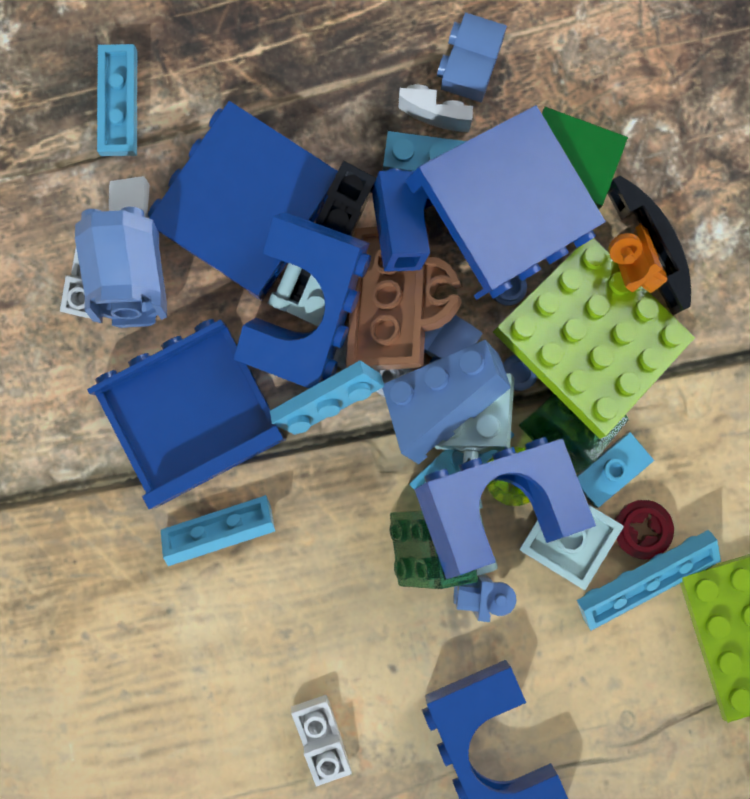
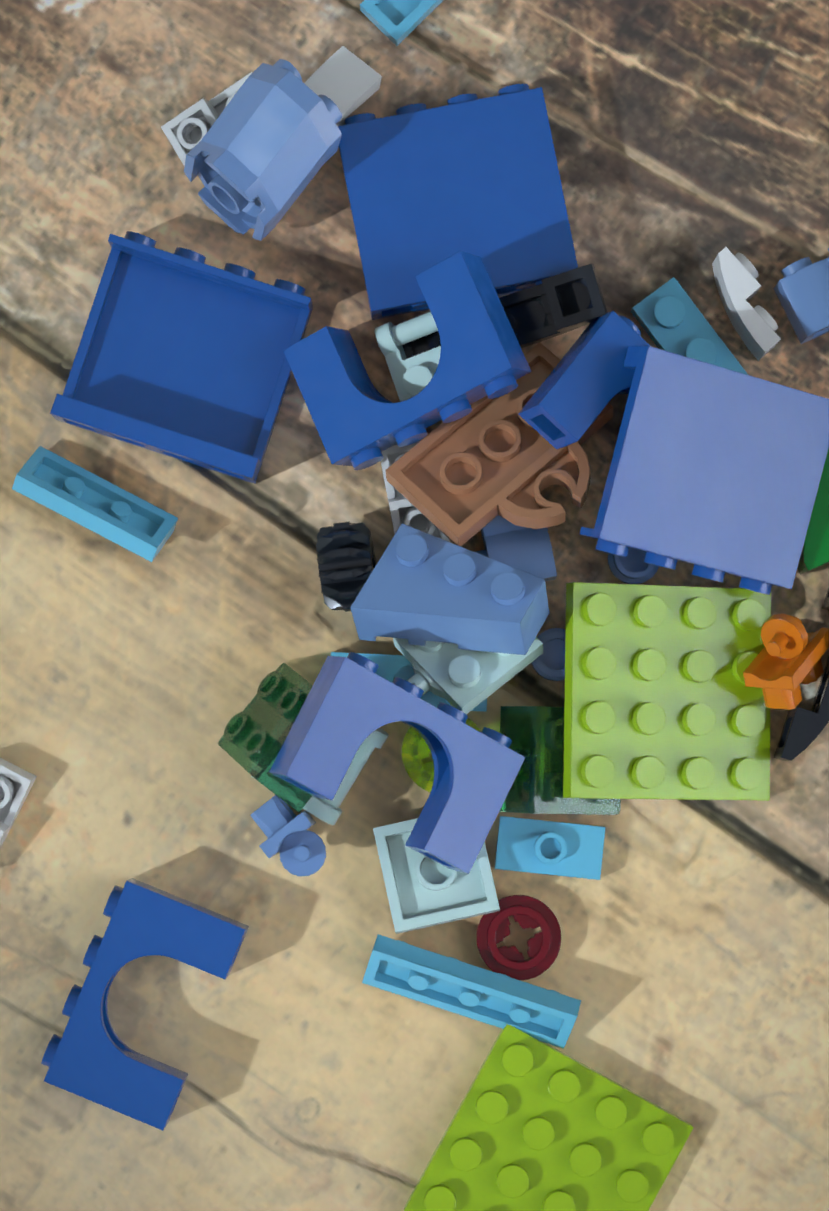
camera: 45 degrees right, 0 degrees up
(327, 398) = (335, 482): medium azure plate -> none
(372, 433) = (344, 562): none -> black gear

